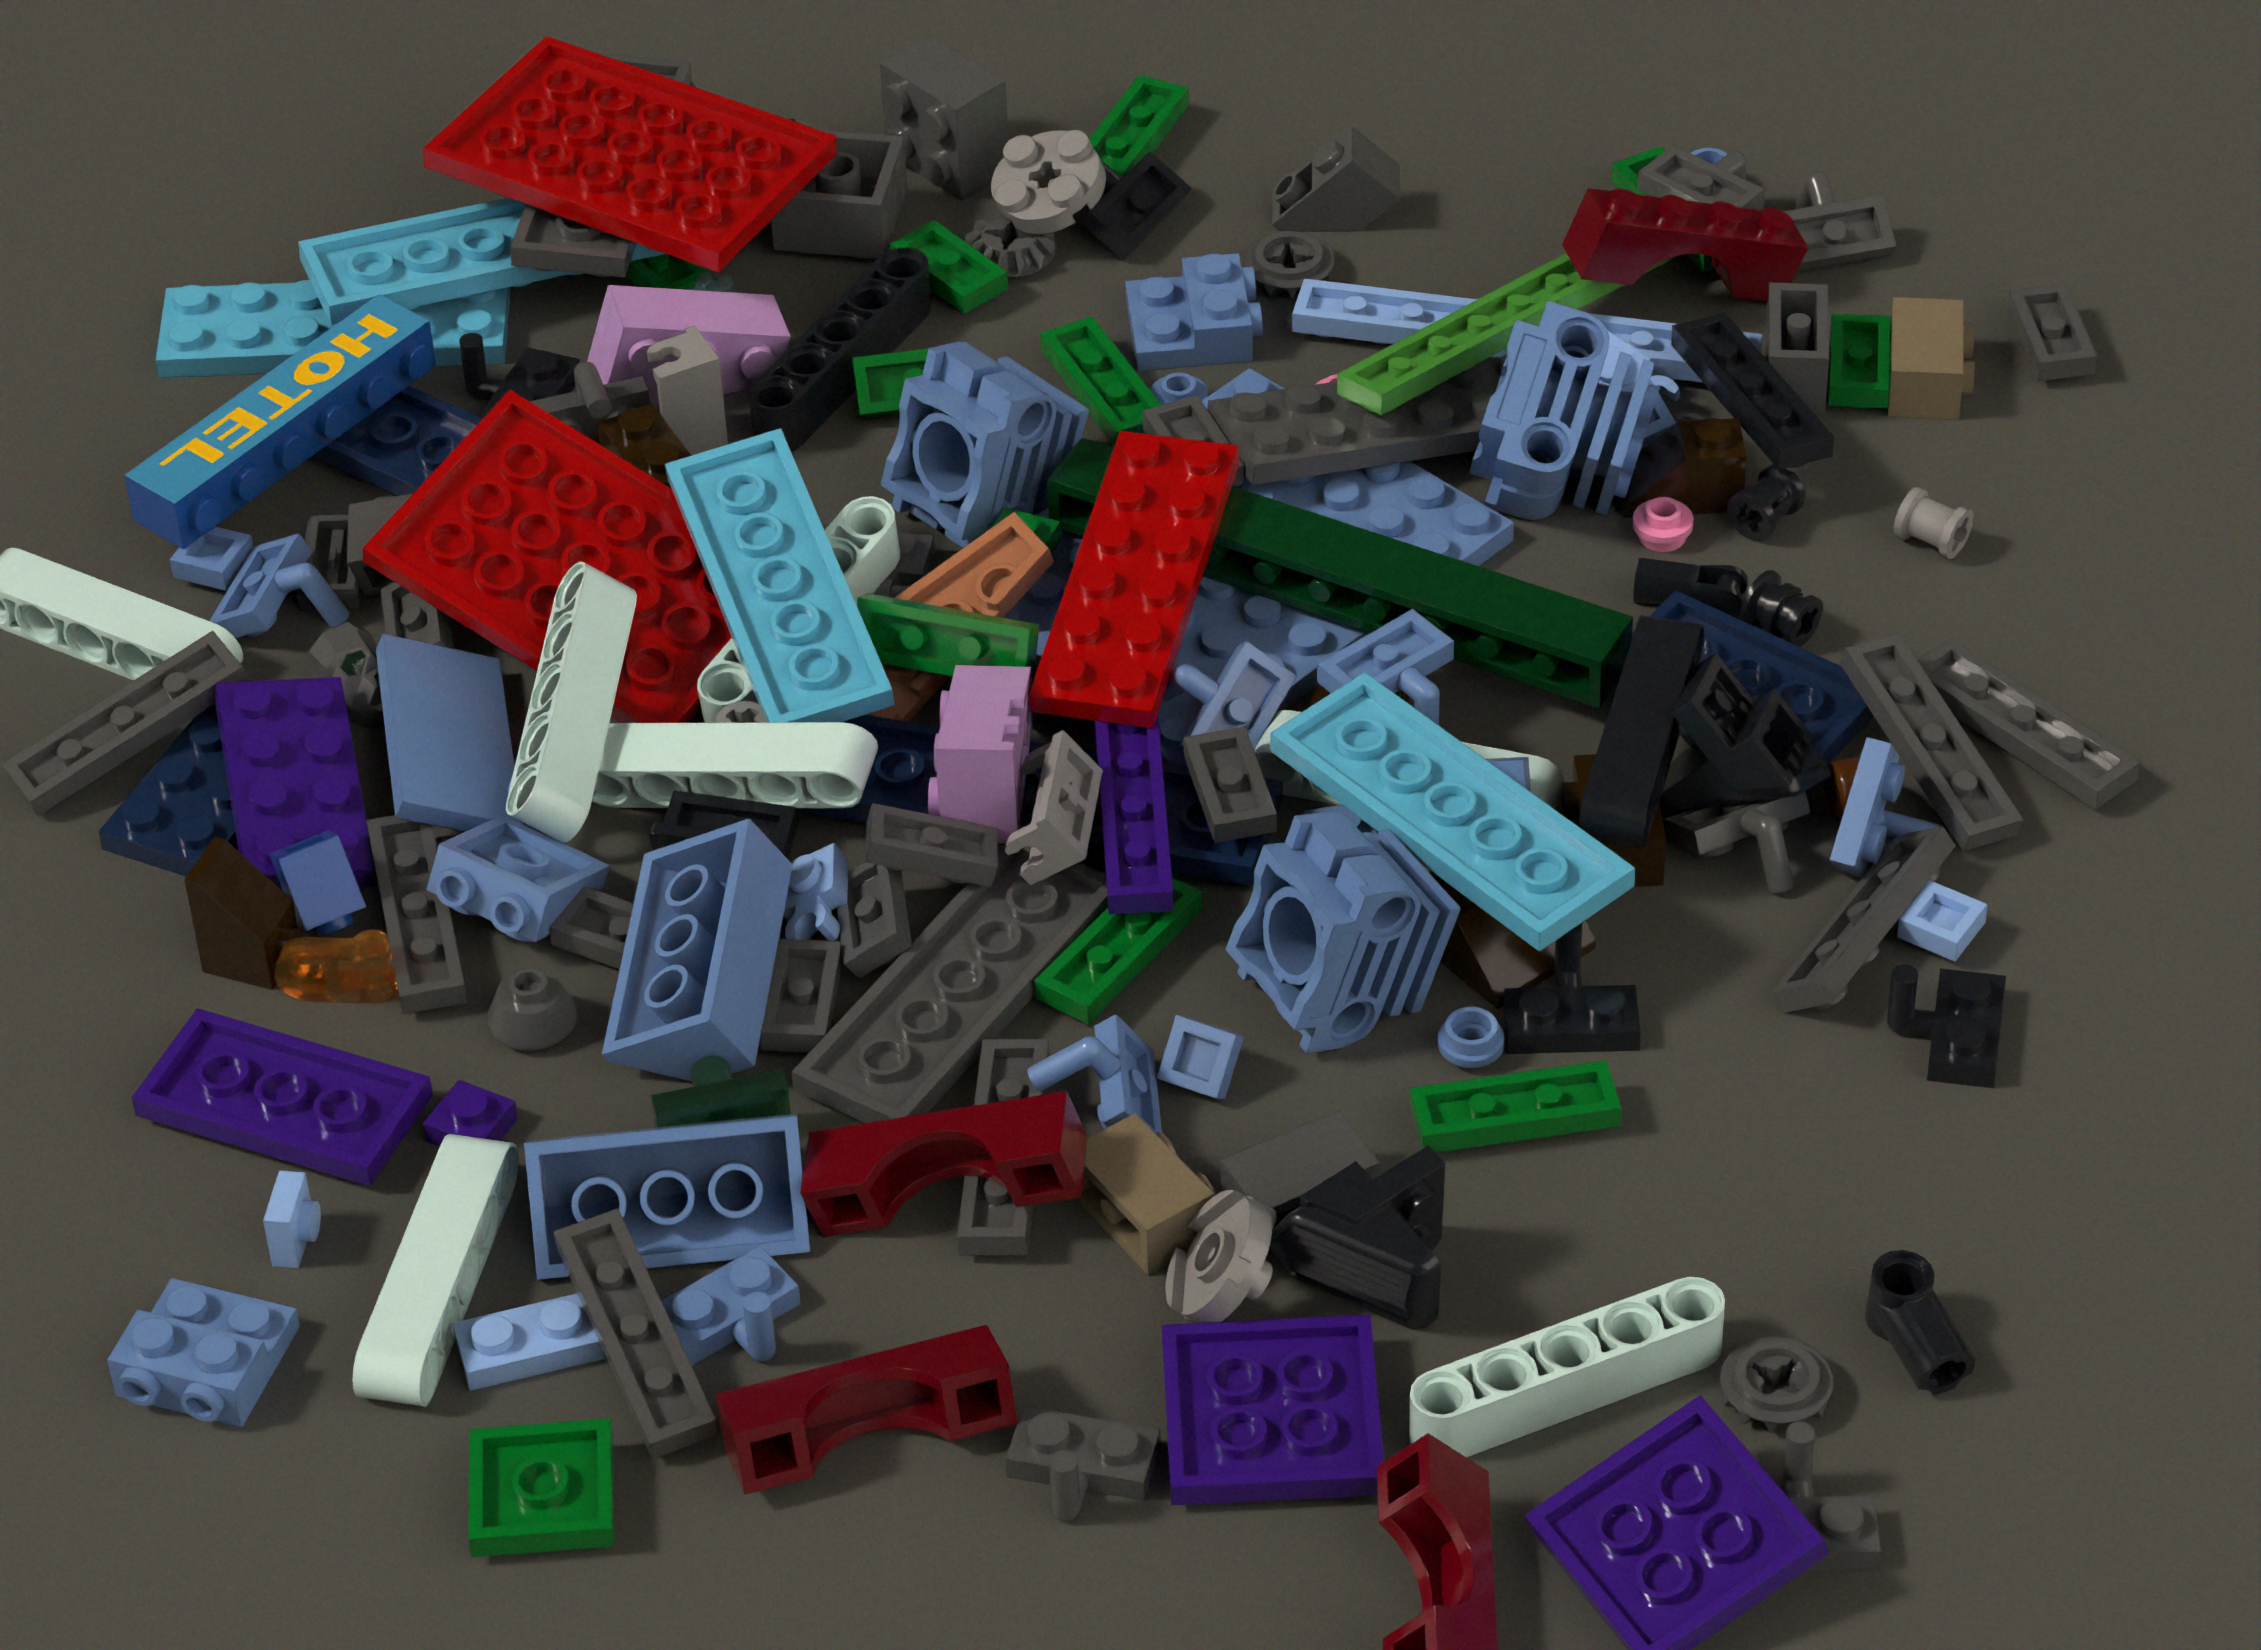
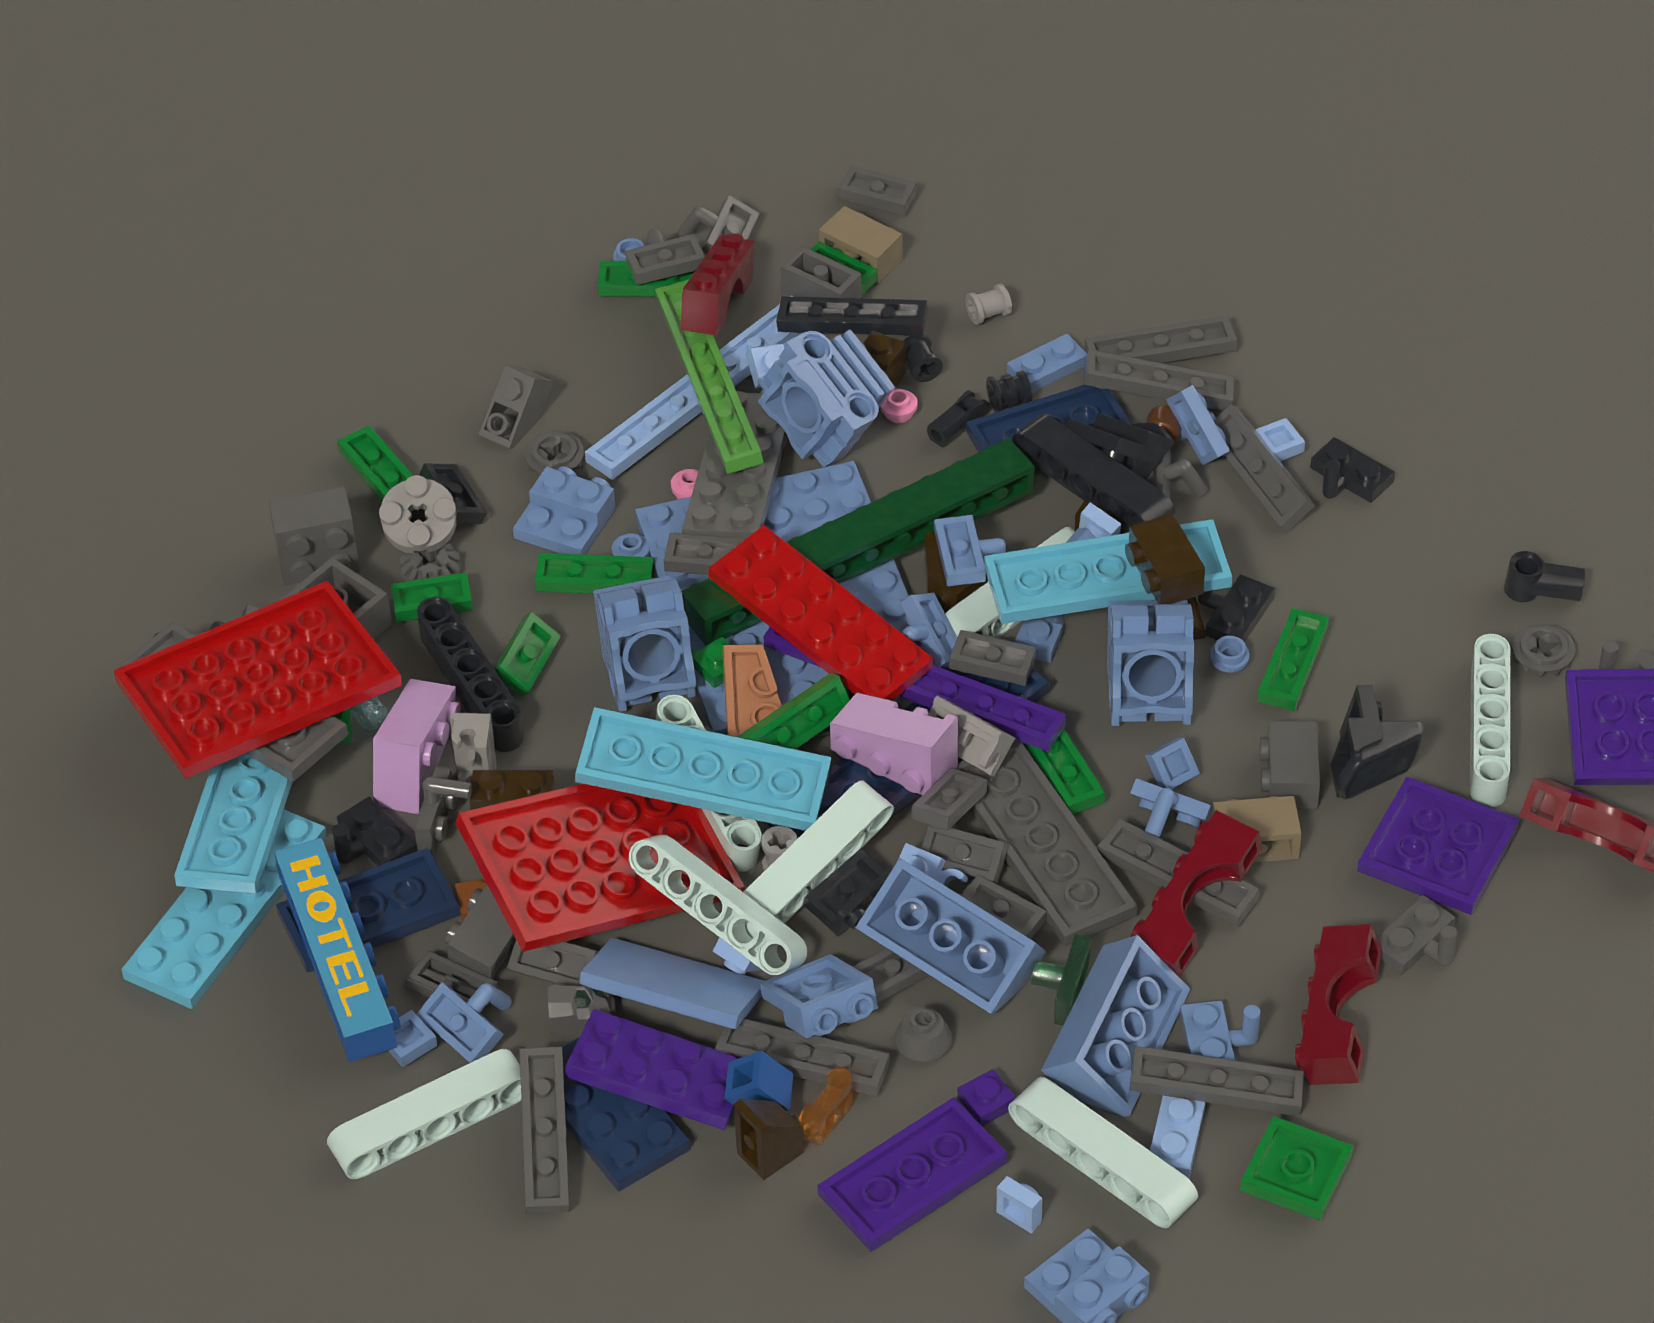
camera: 60 degrees left, 5 degrees up
(1223, 1259) = (1359, 807): light grey plate -> none
(1485, 837) = (1165, 560): none -> dark brown brick
(1551, 774) = (1098, 522): none -> light blue plate
(1857, 618) = (1049, 362): none -> medium blue plate

